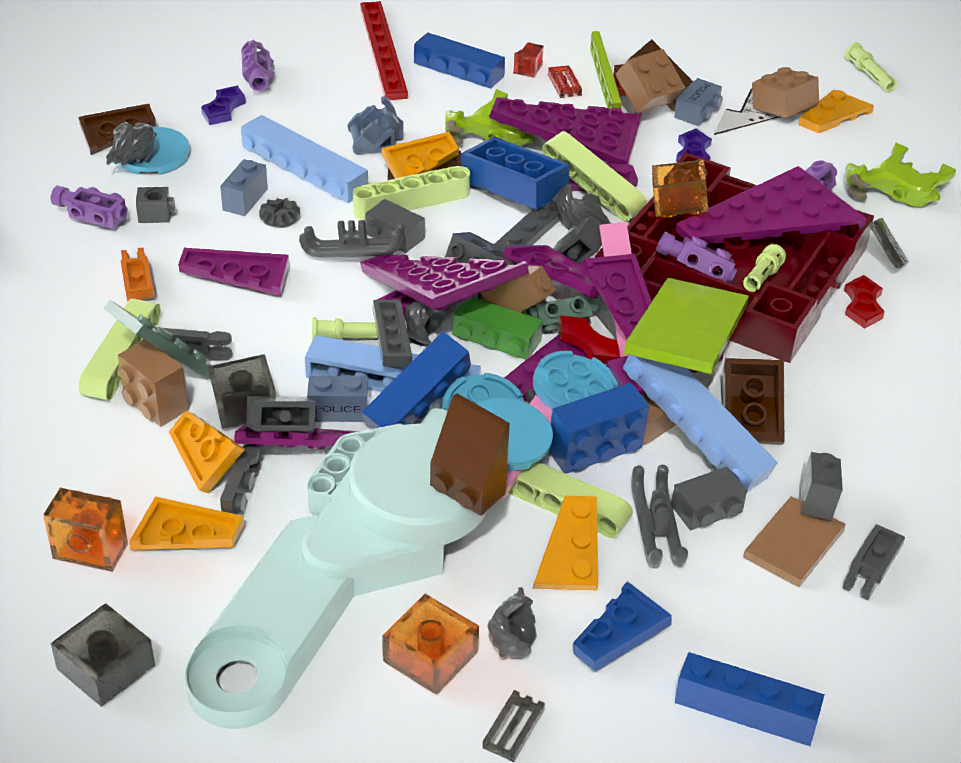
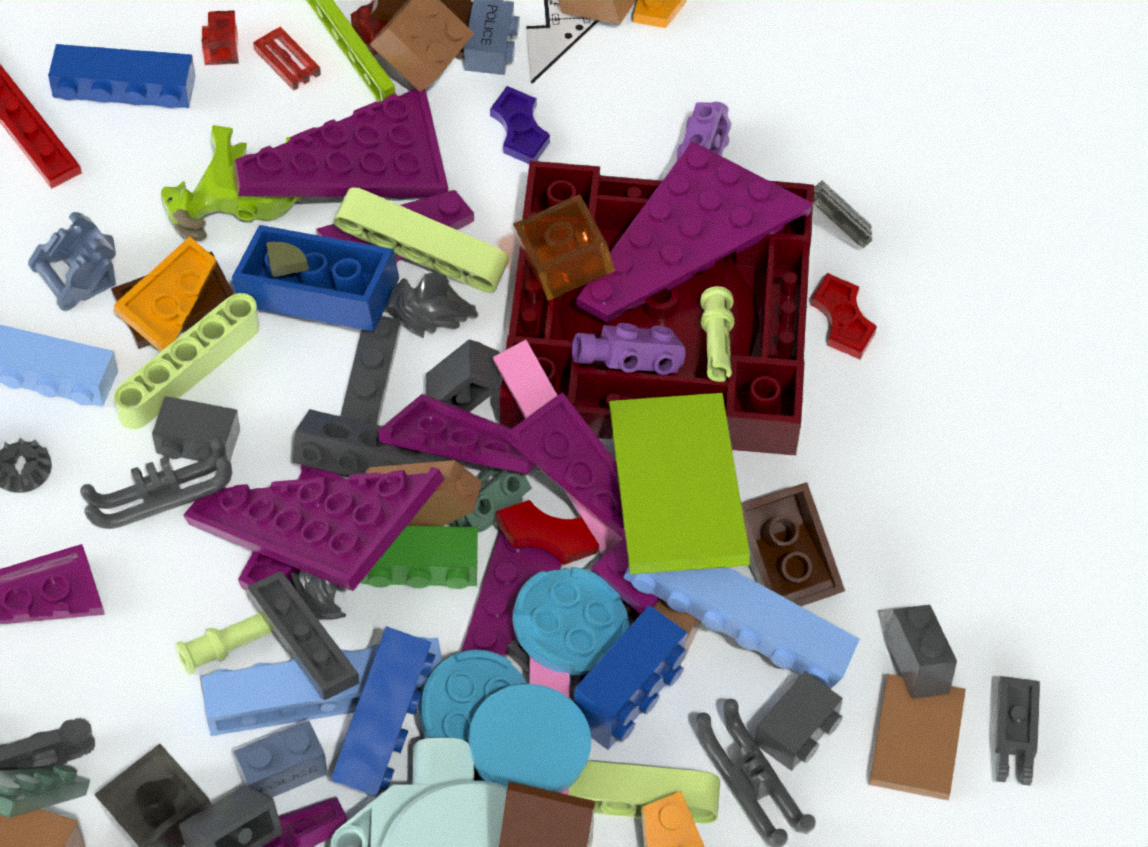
camera: 25 degrees left, 15 degrees up
(498, 150) = (285, 259): none -> olive tile
(898, 179) = (805, 86): lime animal -> none

